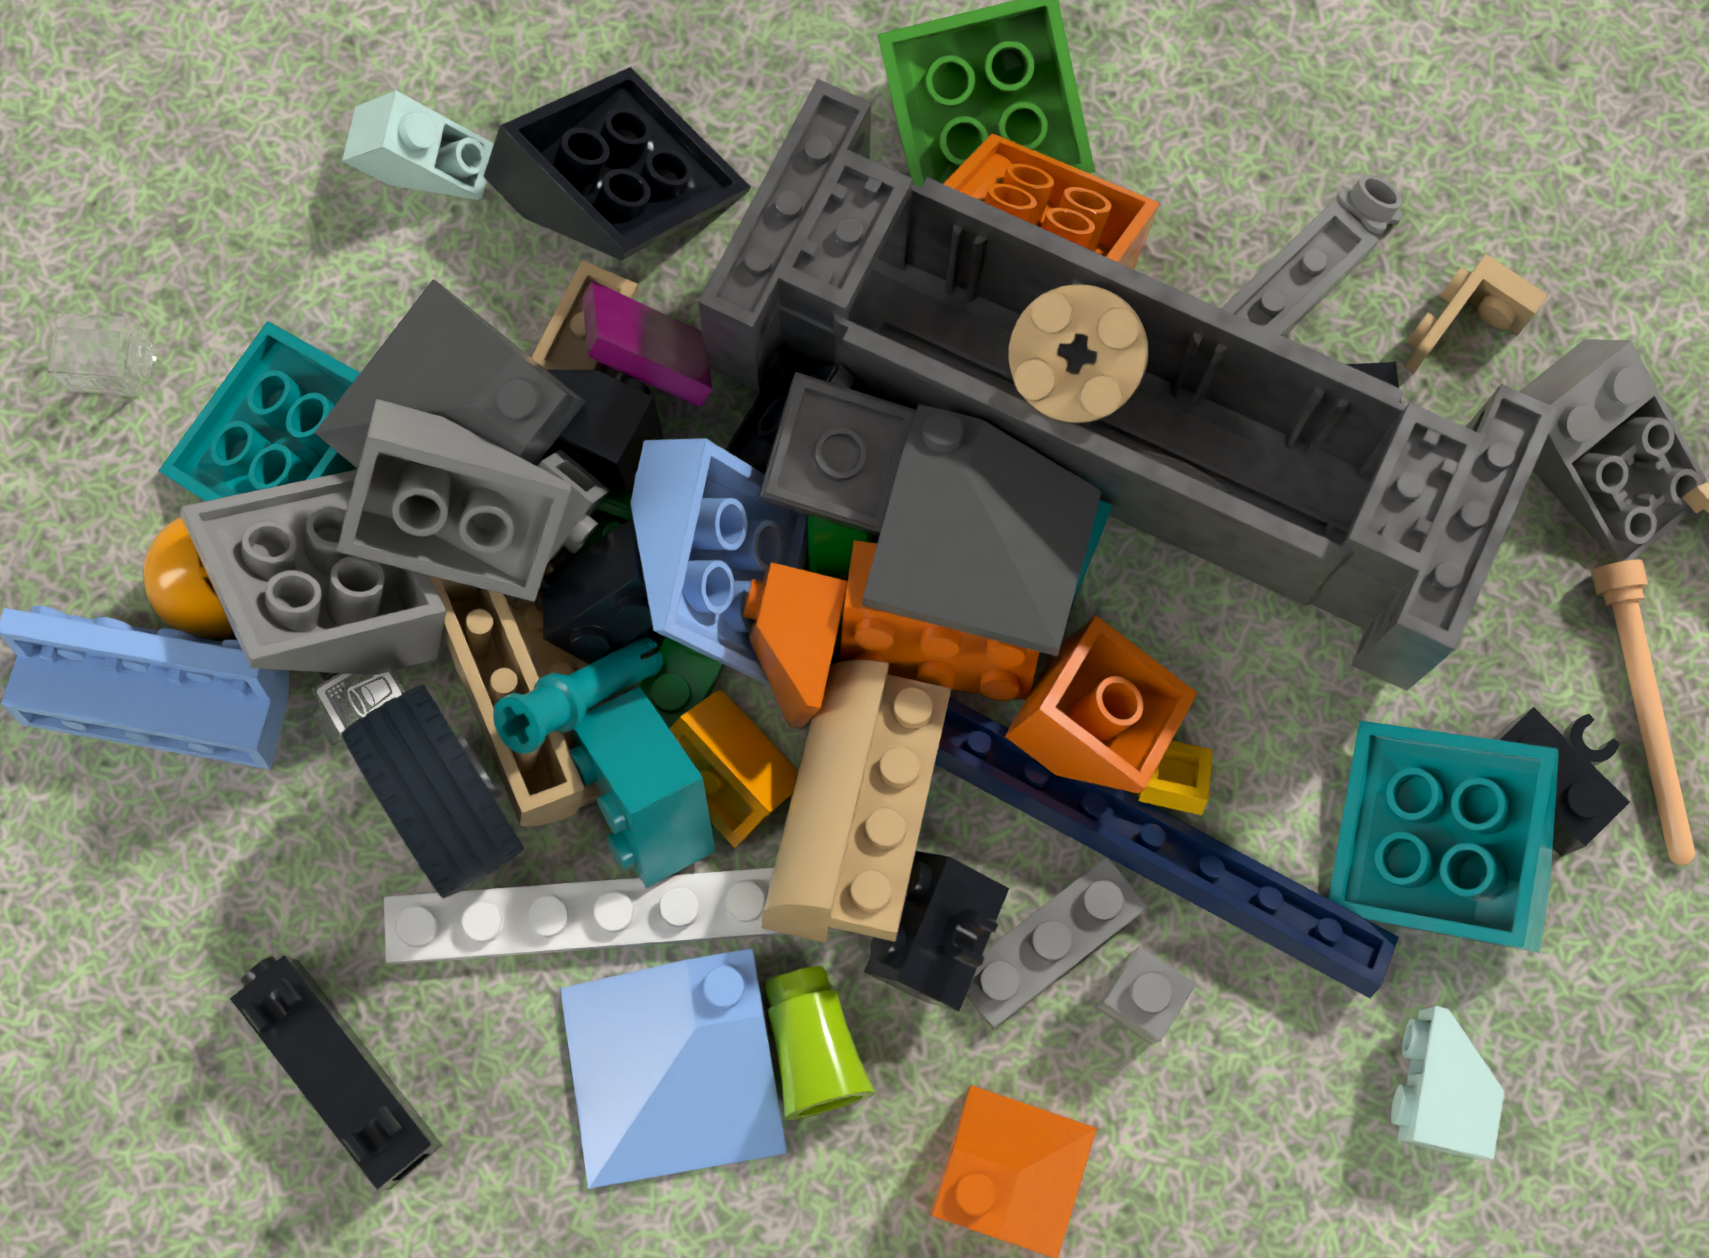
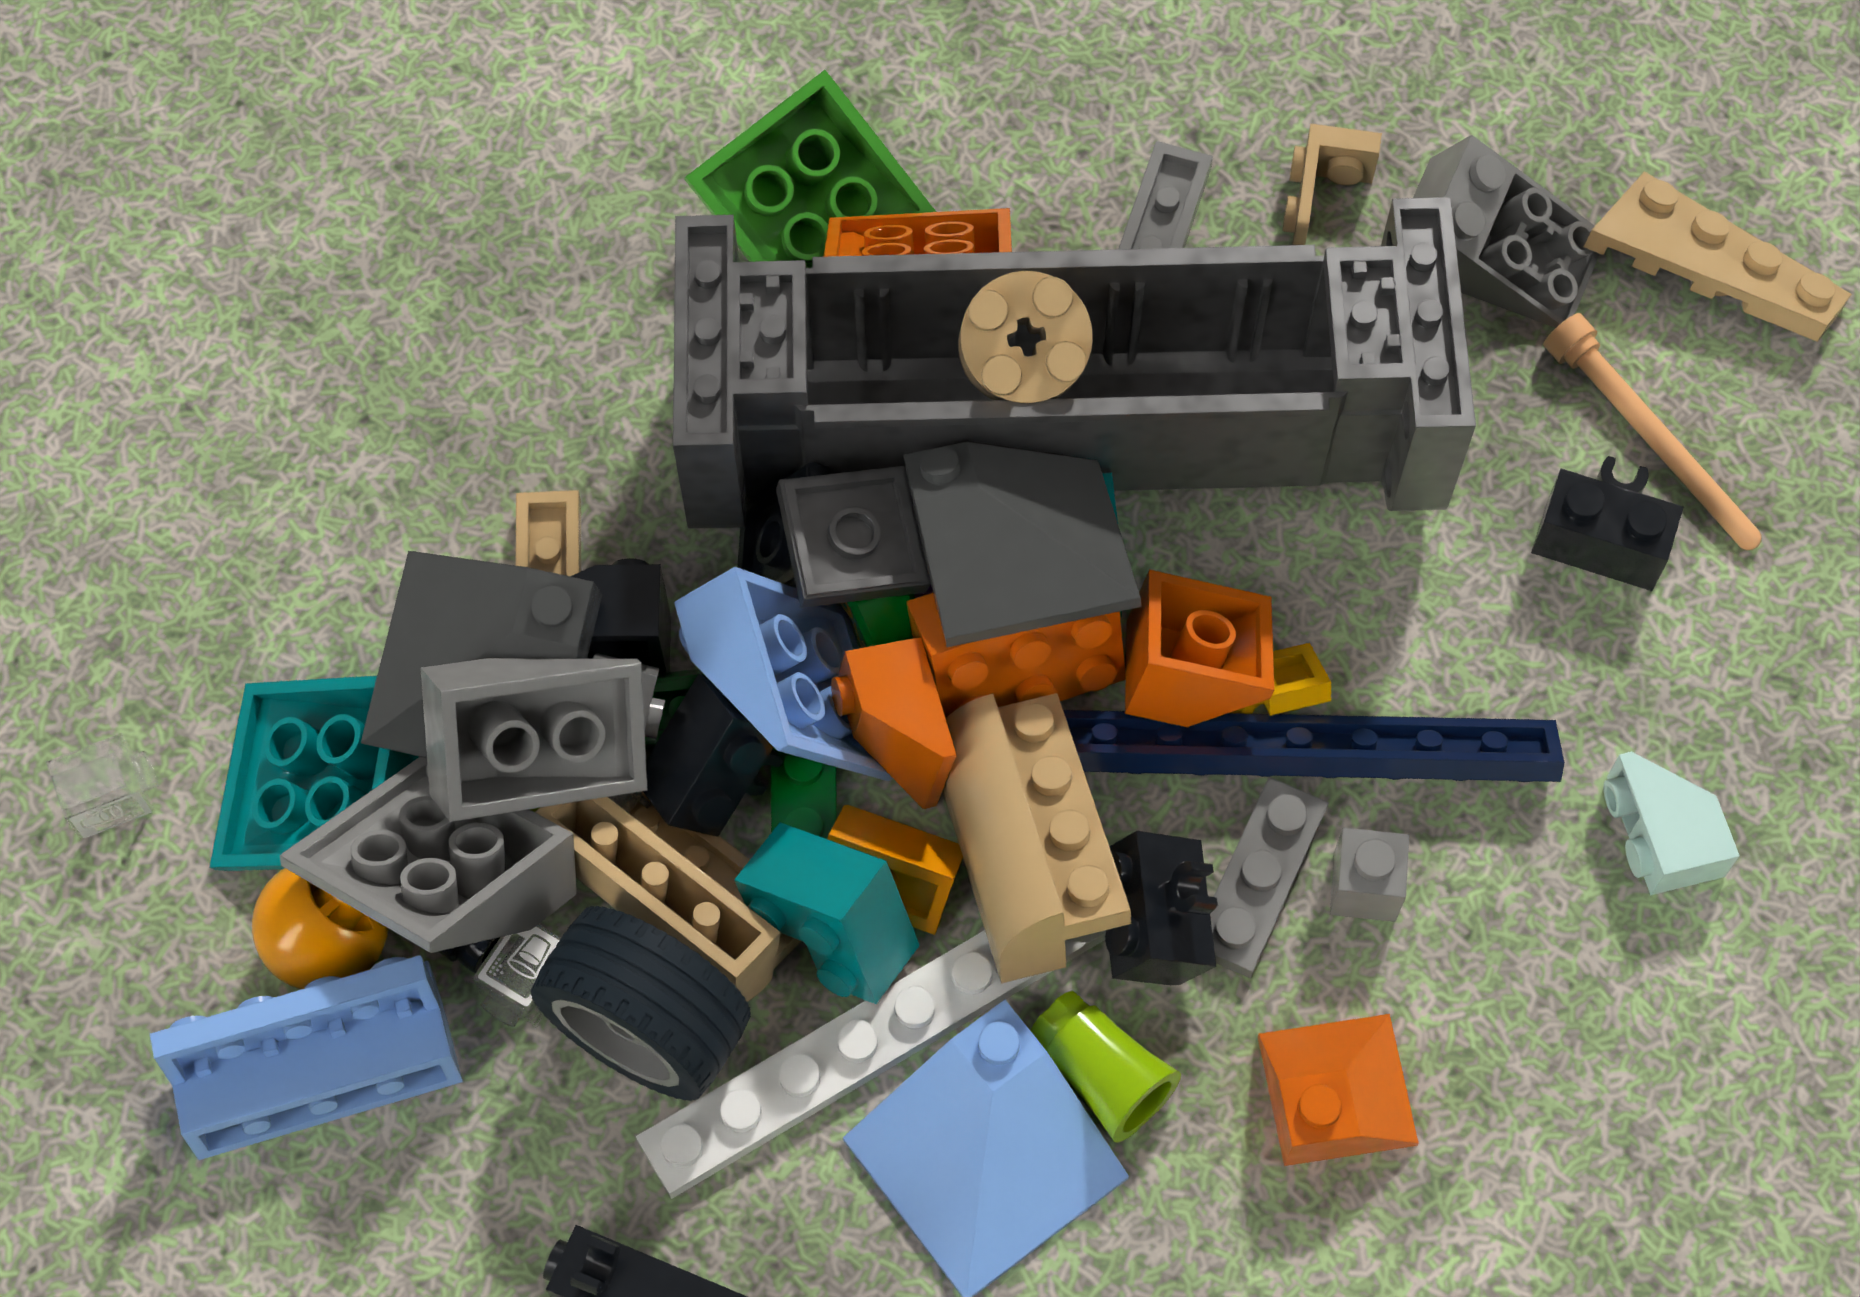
camera: 25 degrees left, 10 degrees down
(416, 148) = (306, 467): light aqua slope -> none
(561, 700) = (721, 860): teal pin -> none
(610, 167) = (497, 403): black slope -> none
(646, 344) = (621, 531): magenta tile -> none
(1372, 203) = (1189, 129): light grey plate -> none
(1448, 834) = (1549, 612): teal slope -> none

